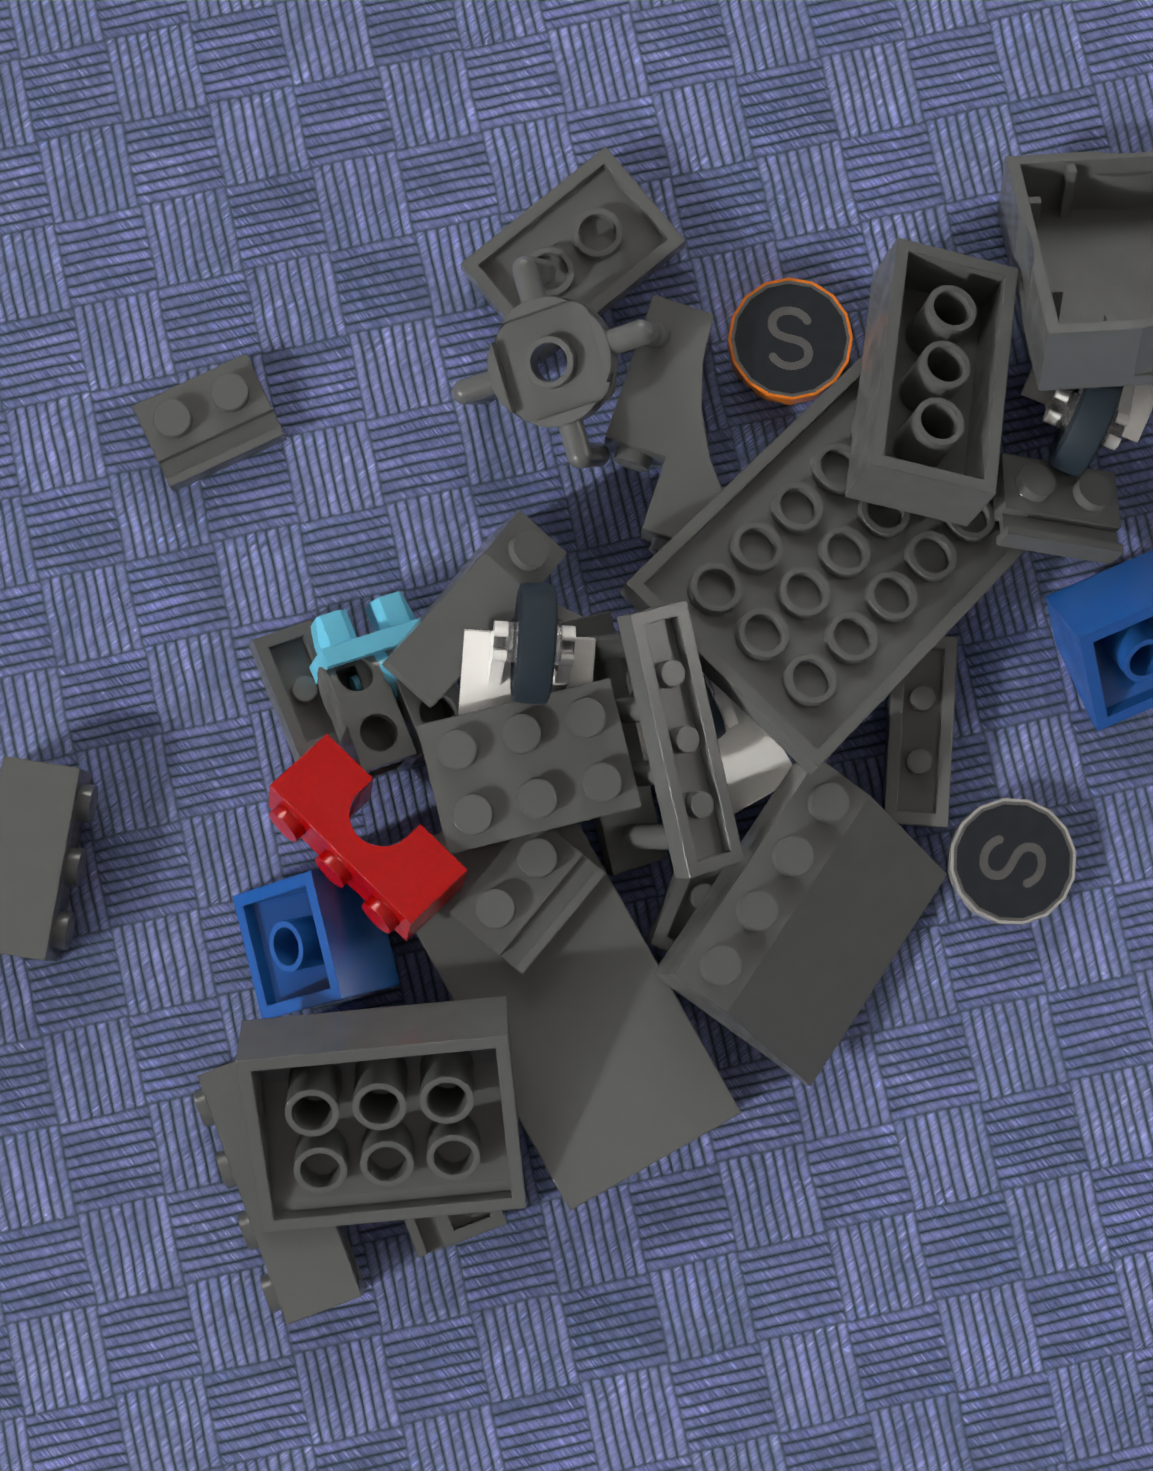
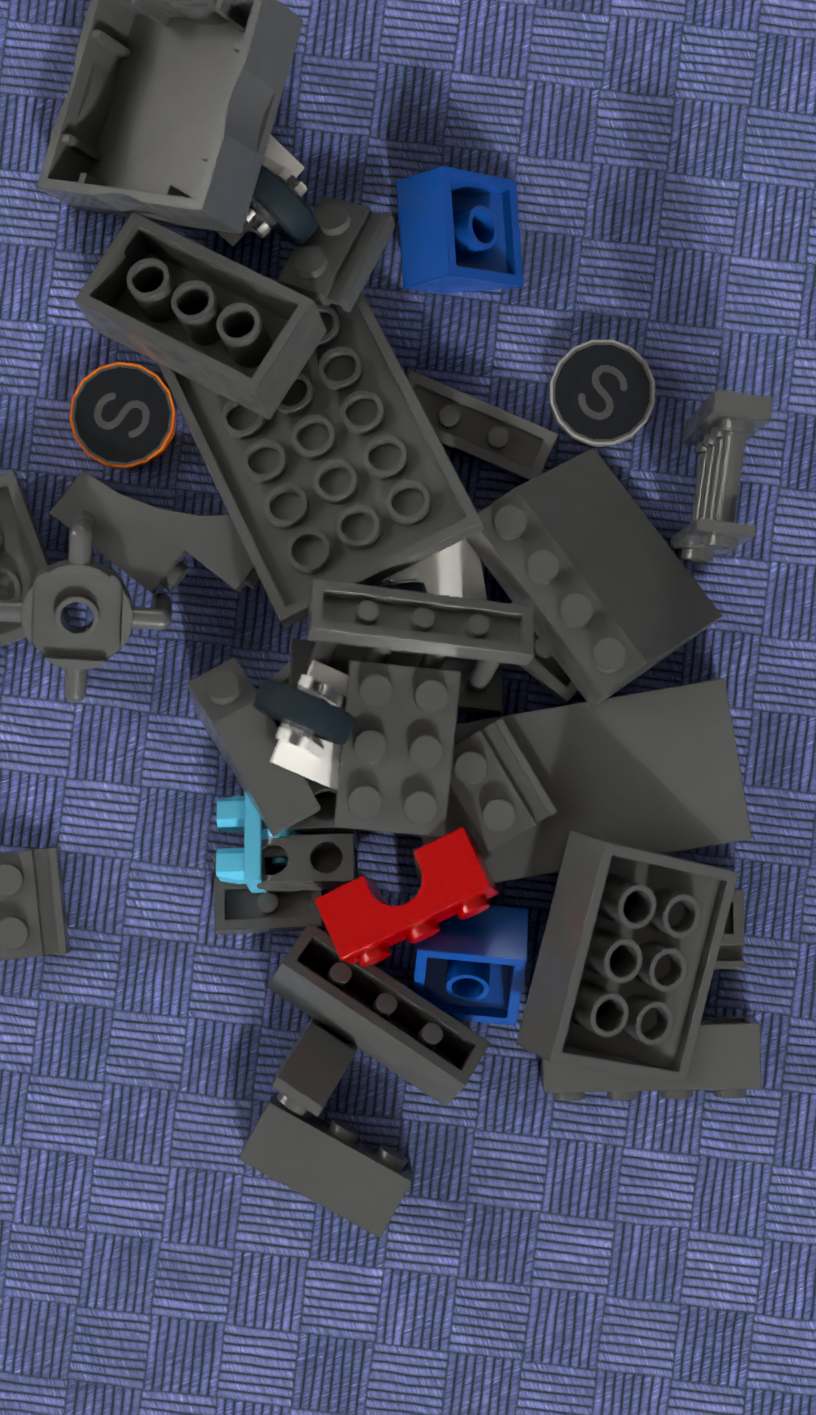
camera: 70 degrees left, 5 degrees up
(136, 803) = (312, 1069): none -> dark grey slope
(219, 857) = (379, 1016): none -> dark grey brick
(1019, 1004) = (719, 438): none -> dark grey fence

